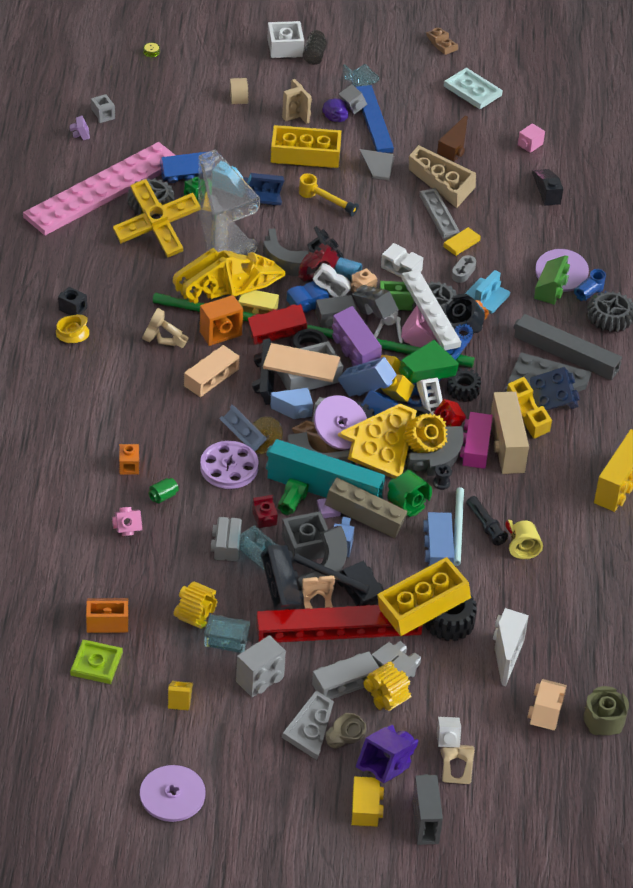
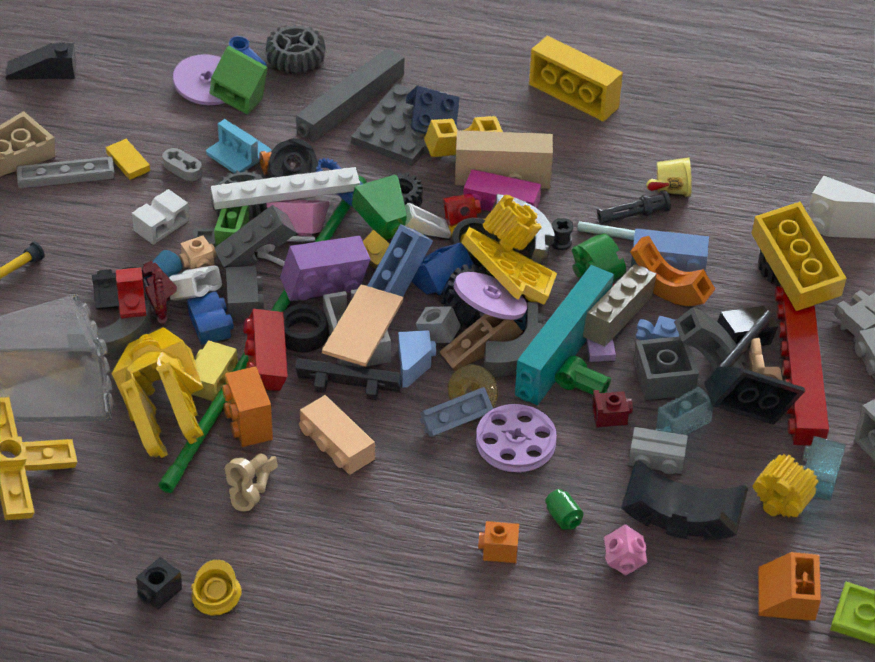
camera: 80 degrees left, 0 degrees up
(180, 550) = (683, 508): none -> black panel
(309, 243) = (130, 293): none -> red slope
(403, 545) = (670, 283): none -> orange arch

